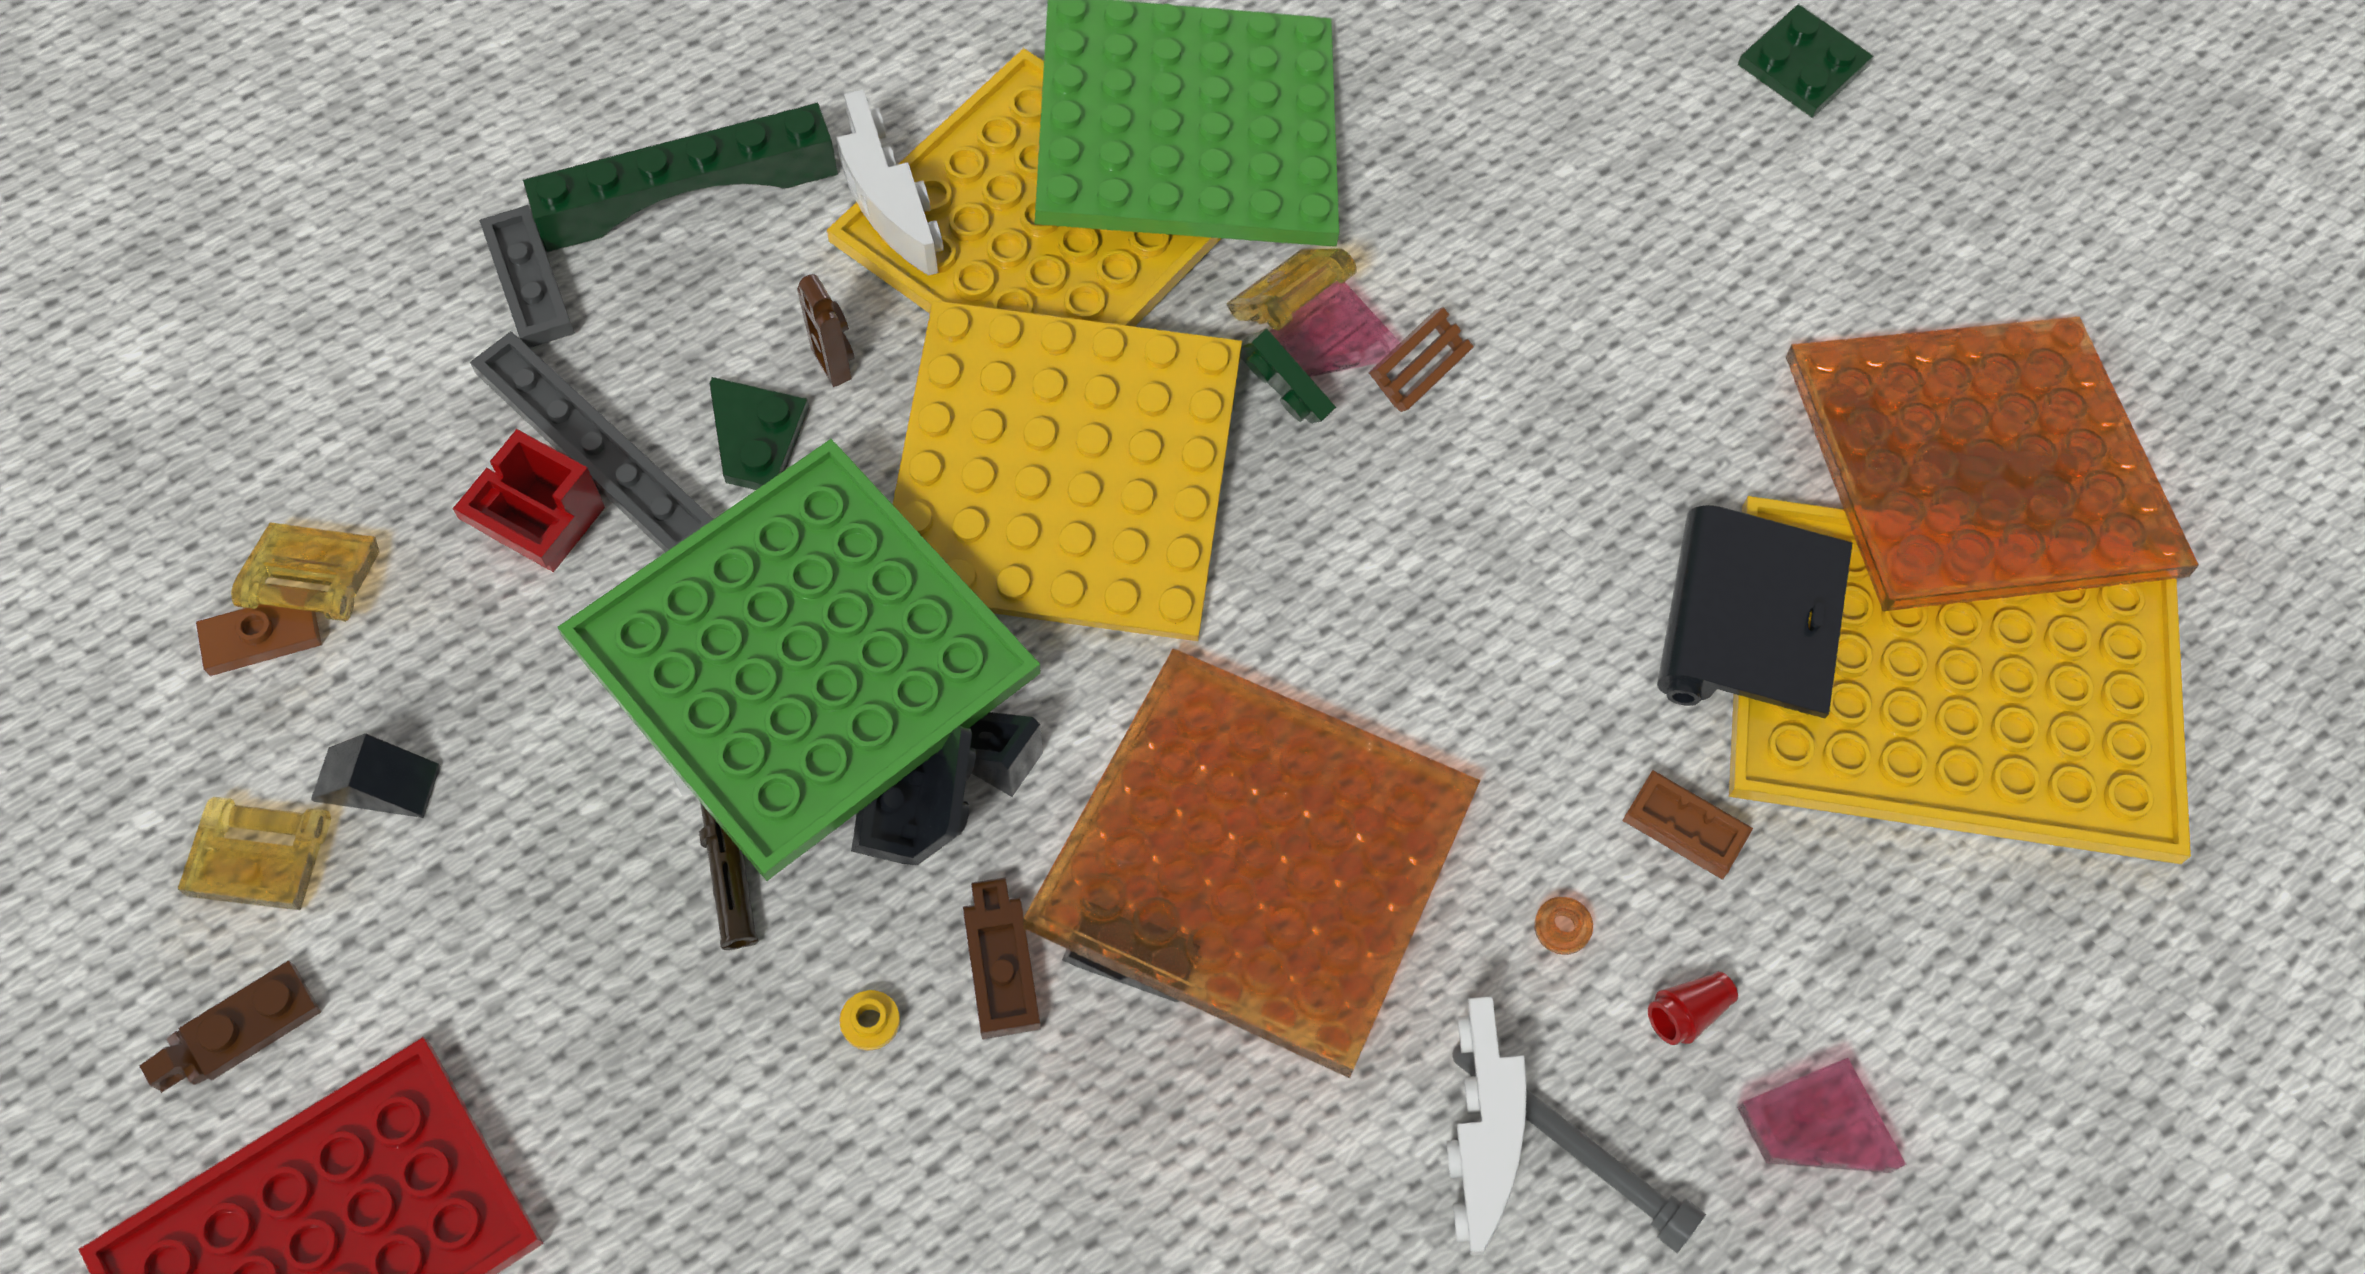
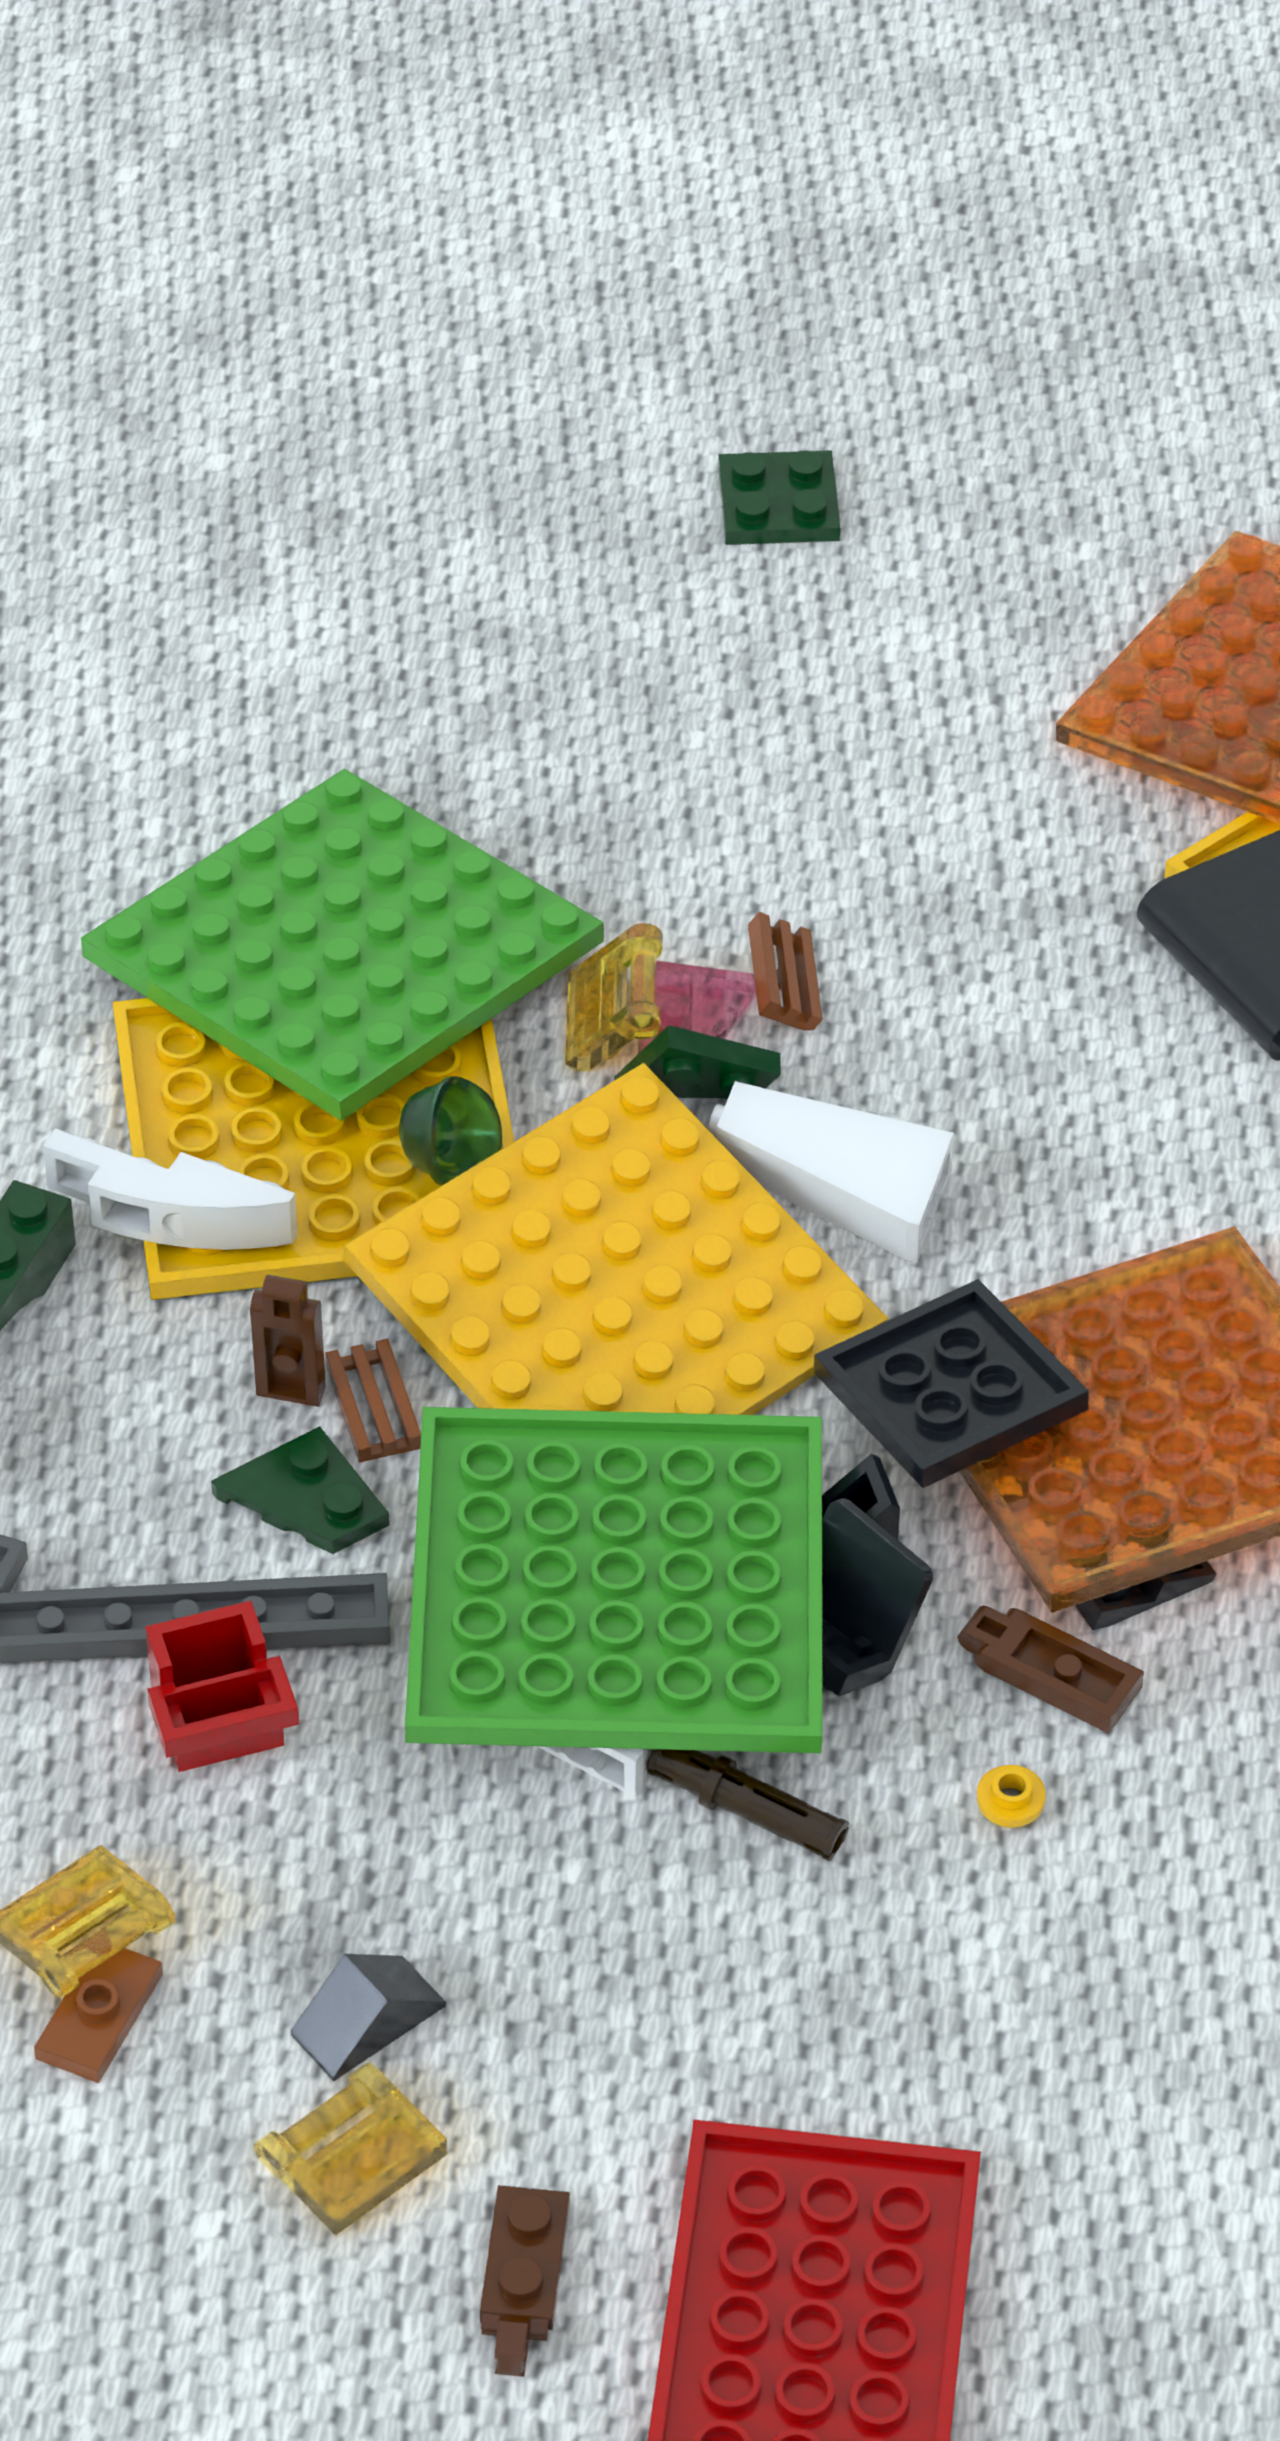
camera: 45 degrees left, 15 degrees down
(883, 378) = (361, 1362): none -> dark orange tile
(1077, 283) = (449, 1128): none -> clear green helmet
(1152, 717) = (951, 1383): none -> black plate
(1295, 514) = (840, 1163): none -> white slope

